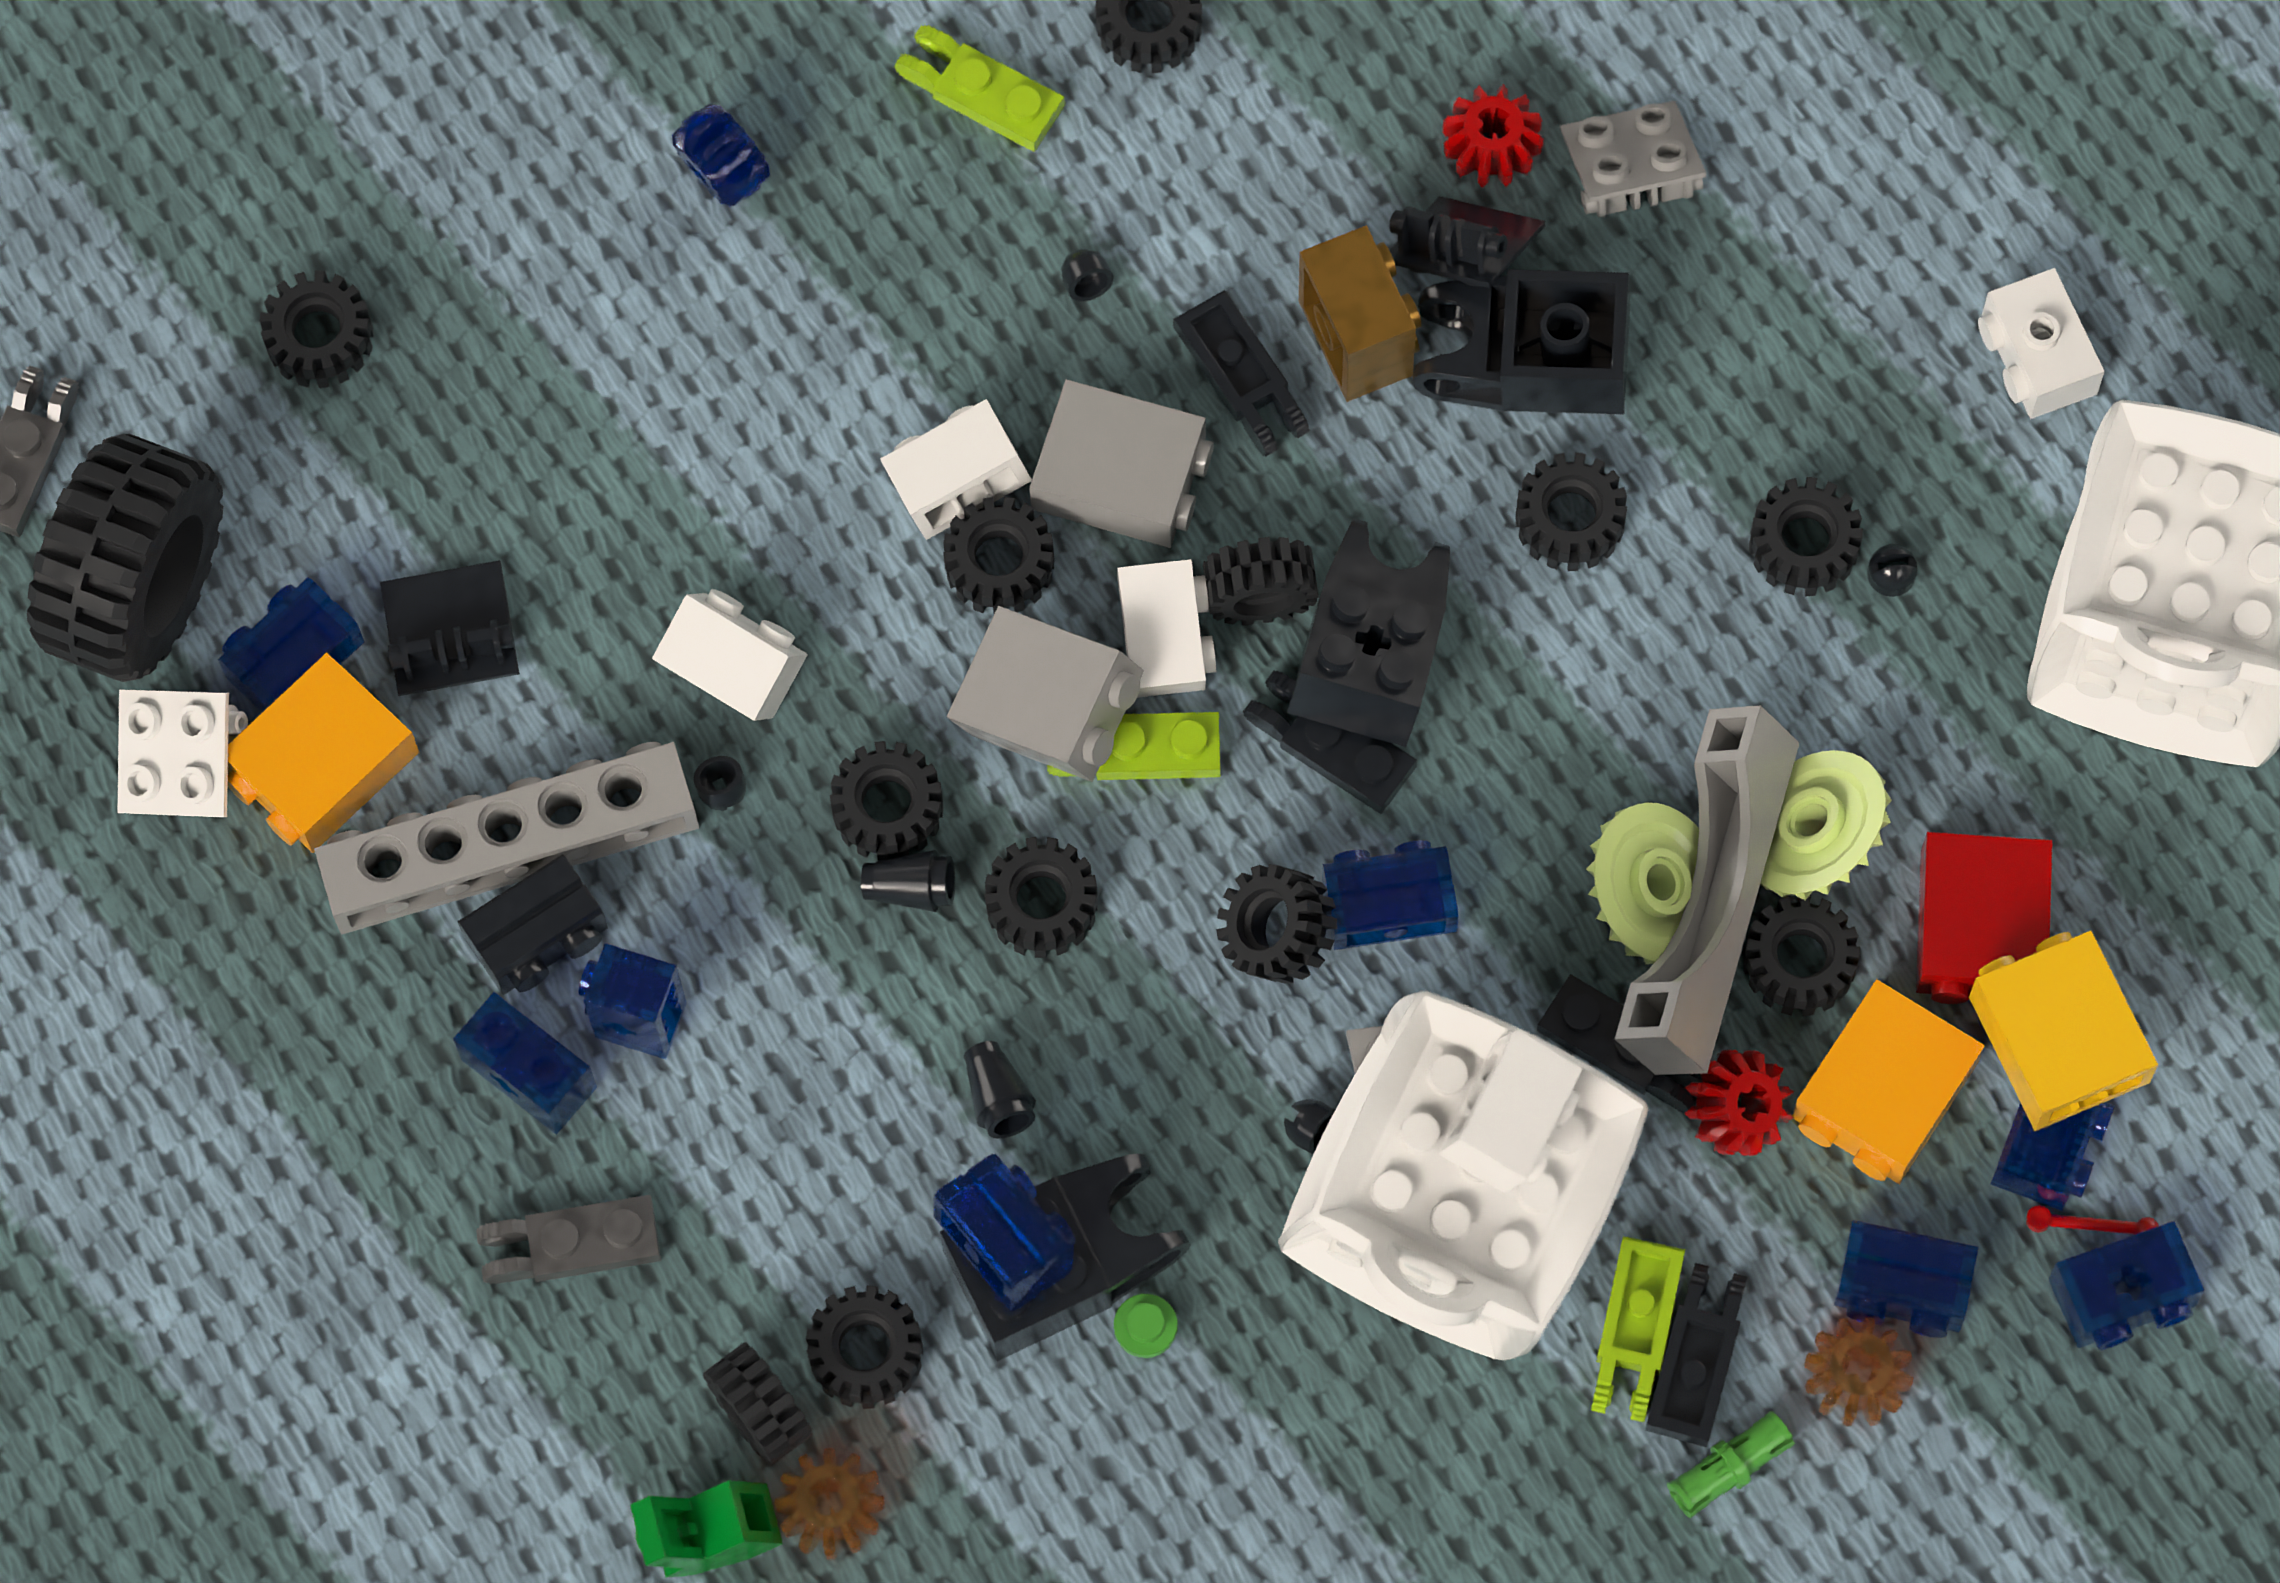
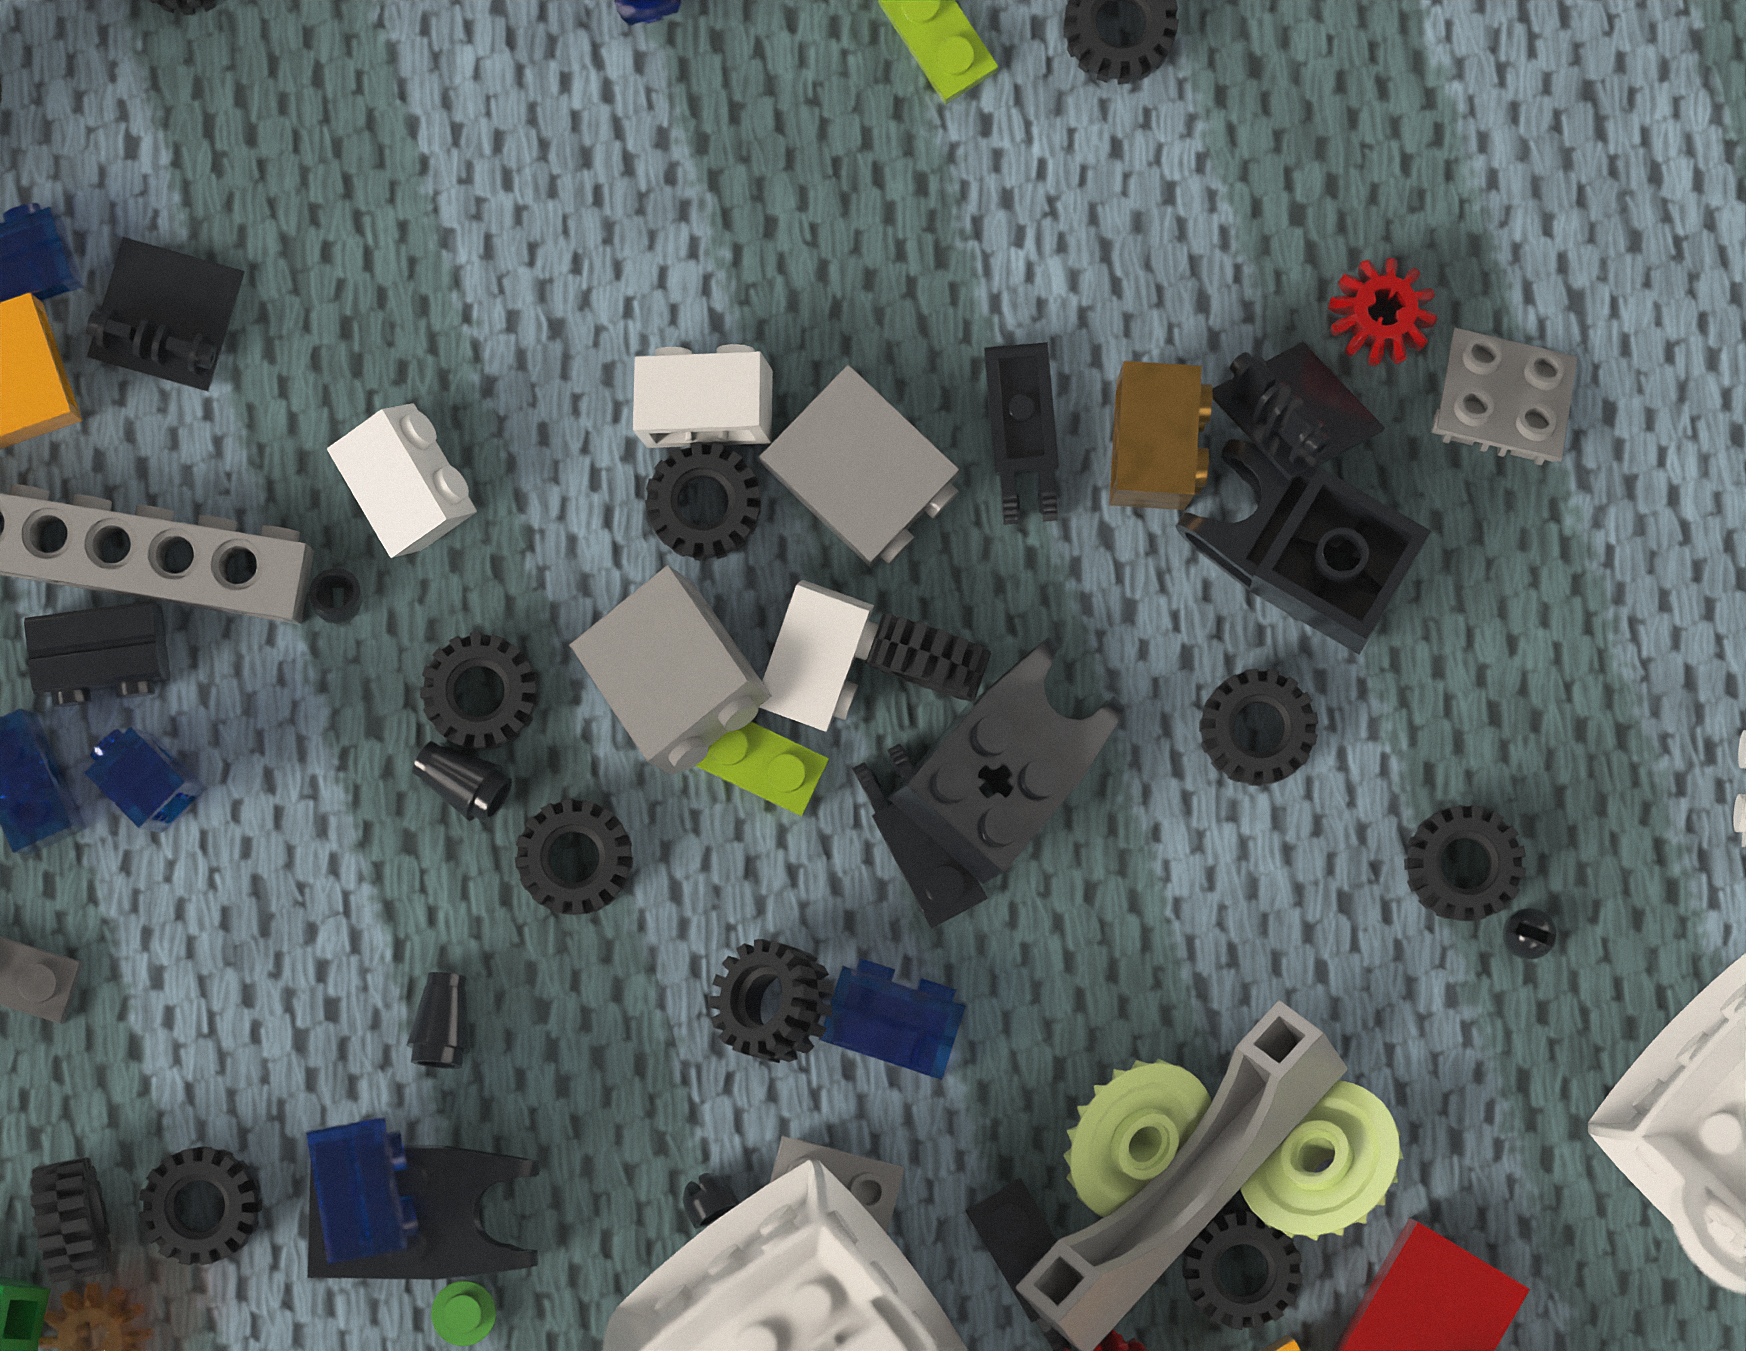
camera: 25 degrees right, 15 degrees up
(1086, 275) = (927, 258): black hinge -> none

